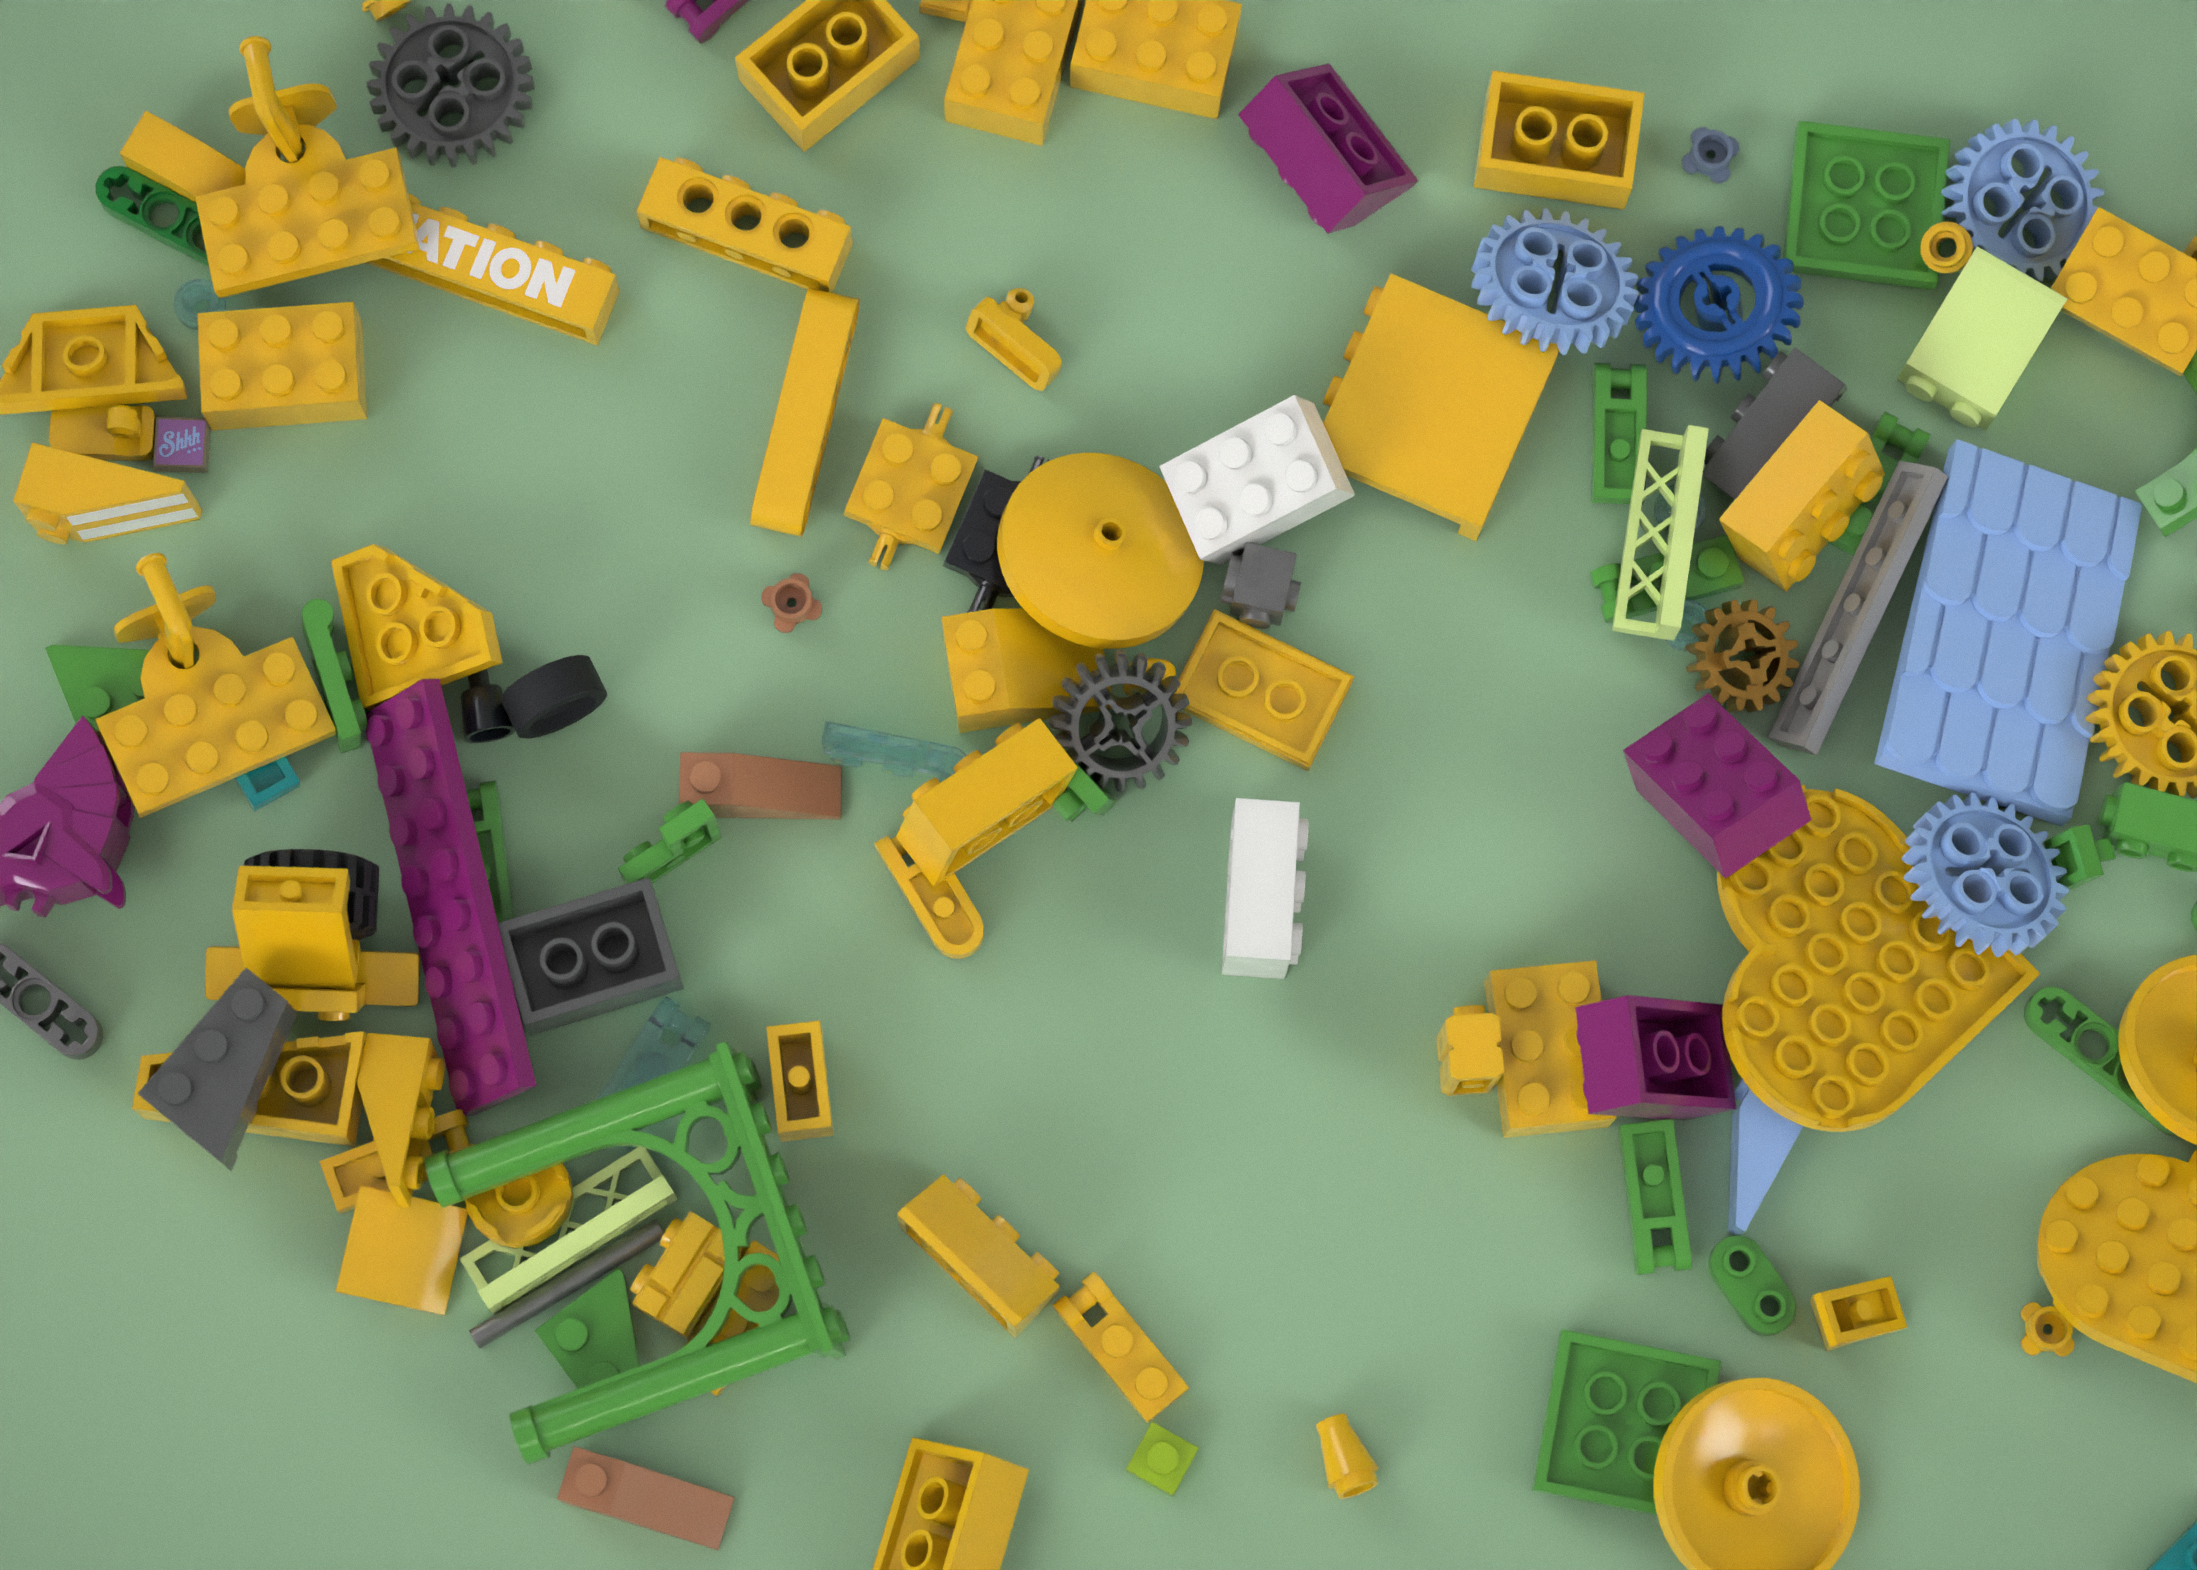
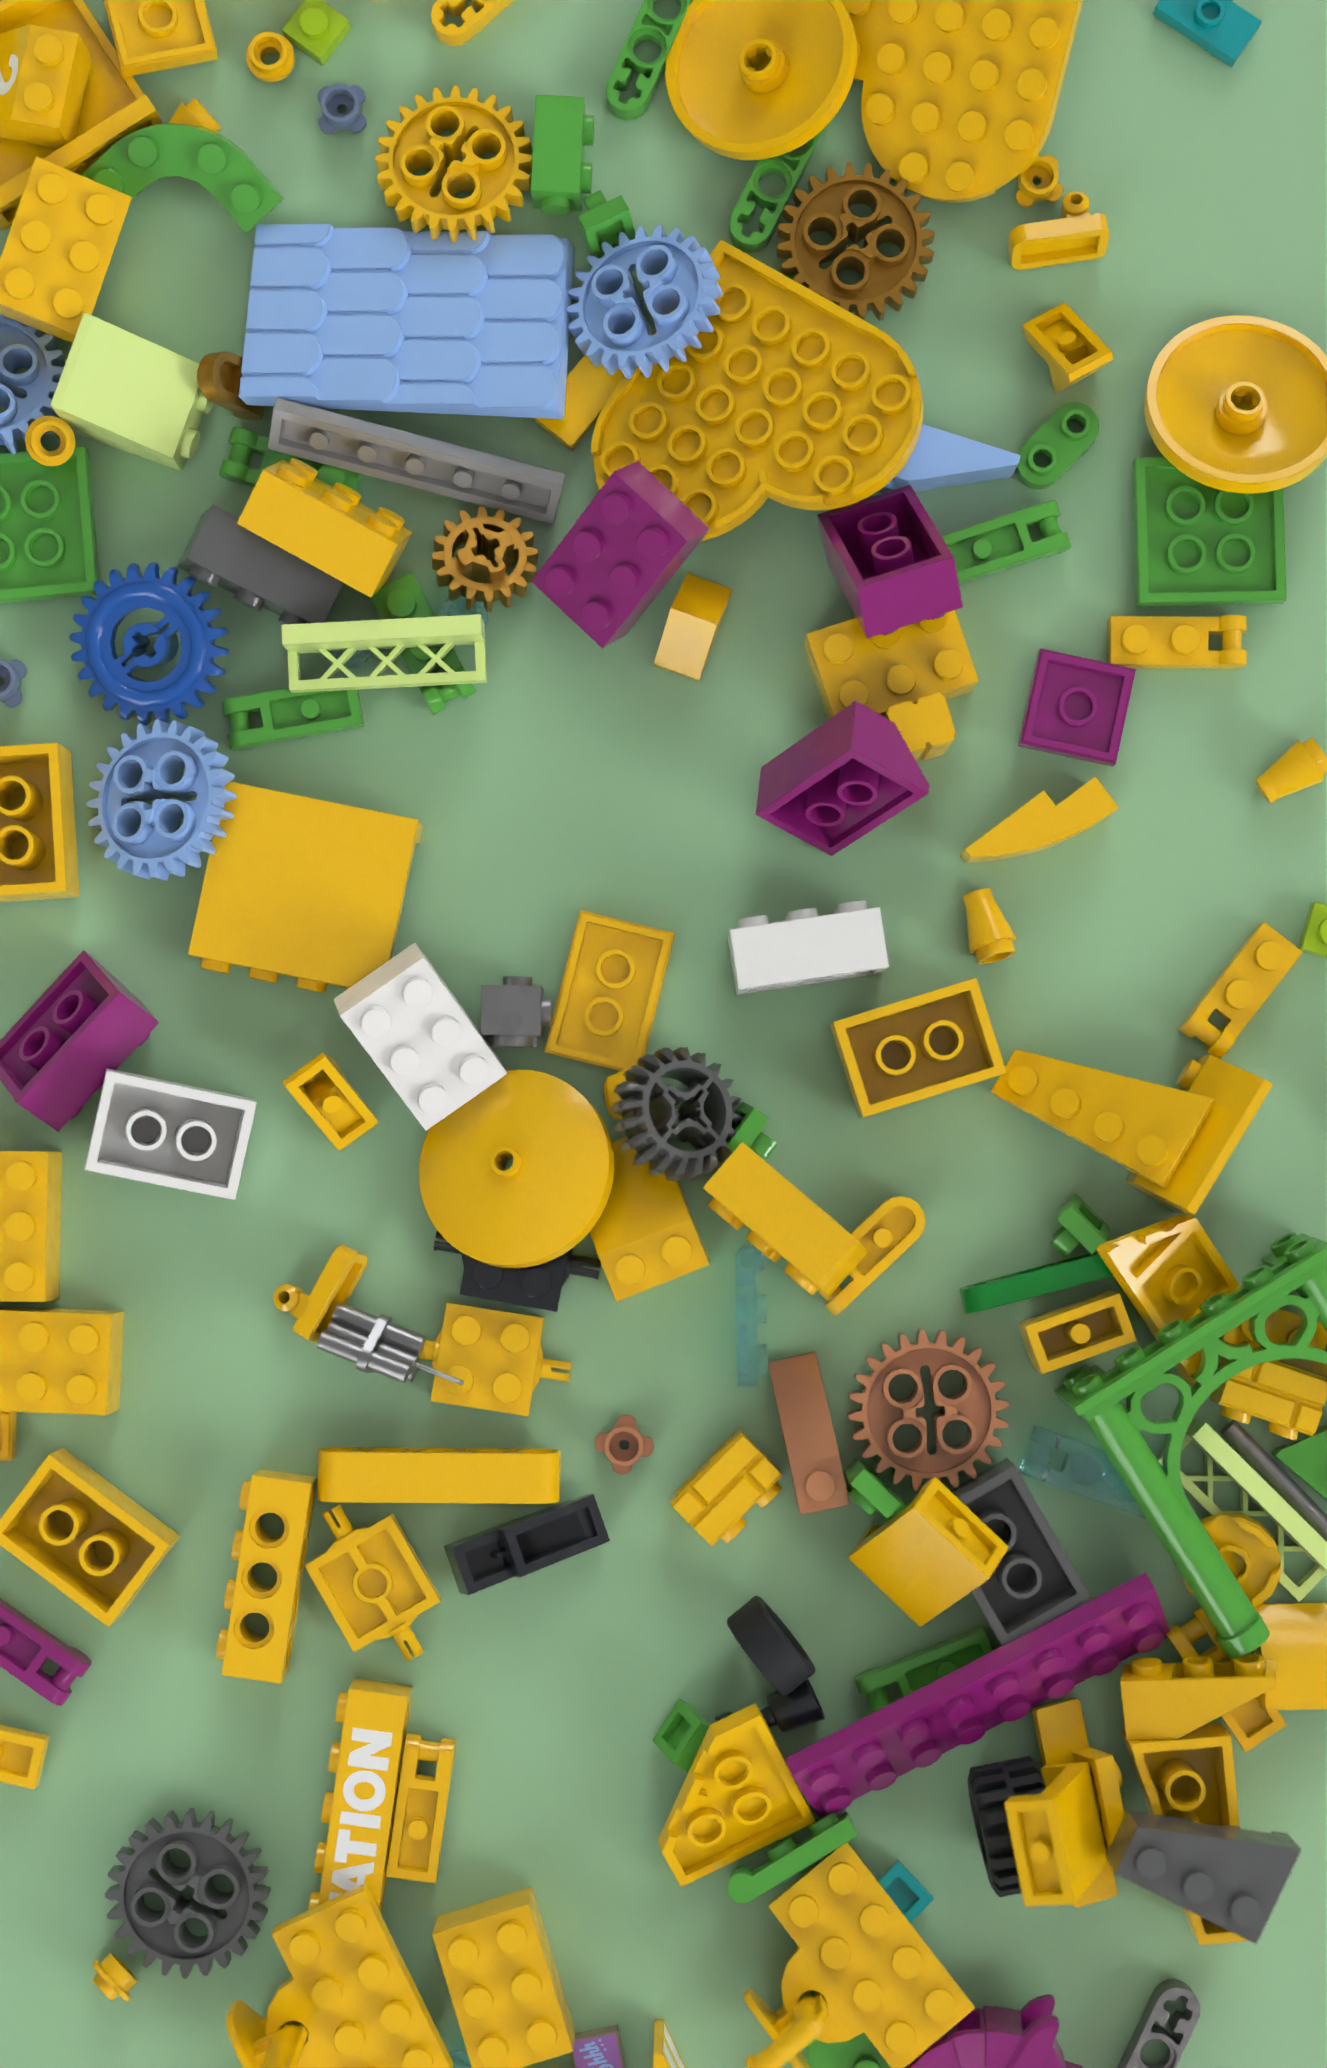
camera: 95 degrees left, 10 degrees up
(474, 324) = (421, 1810): none -> yellow plate
(486, 591) = (682, 1734): none -> bright green tile
(611, 871) = (929, 1553): none -> yellow panel
(713, 325) = (373, 1582): none -> yellow plate
(714, 484) = (526, 1544): none -> black slope
(723, 693) = (727, 1489): none -> yellow brick
(745, 961) = (972, 1404): none -> nougat gear
(840, 1187) = (1168, 1274): none -> yellow wing
(861, 1079) = (1034, 1282): none -> green beam
(908, 1115) = (1078, 1227): none -> bright green tile
(952, 375) = (376, 1344): none -> flat silver piece
(1017, 1169) = (1116, 1115): none -> yellow wing
(1134, 982) = (917, 1048): none -> yellow brick
(1211, 217) = (170, 1134): none -> white brick
(1211, 382) = (331, 1100): none -> yellow slope
(1243, 1091) = (987, 928): none -> yellow cone
(1343, 1170) = (1043, 824): none -> yellow slope
(1432, 956) = (841, 780): none -> magenta slope
(1462, 1239) = (1076, 707): none -> magenta plate
(1512, 1364) = (1176, 642): none -> yellow plate
(1632, 857) = (692, 626): none -> yellow slope
(1893, 793) = (585, 396): none -> yellow tile
(1974, 1337) = (1062, 240): none -> yellow piece
(1977, 424) = (220, 383): none -> pearl gold plate
(2055, 1097) = (829, 211): none -> pearl gold gear

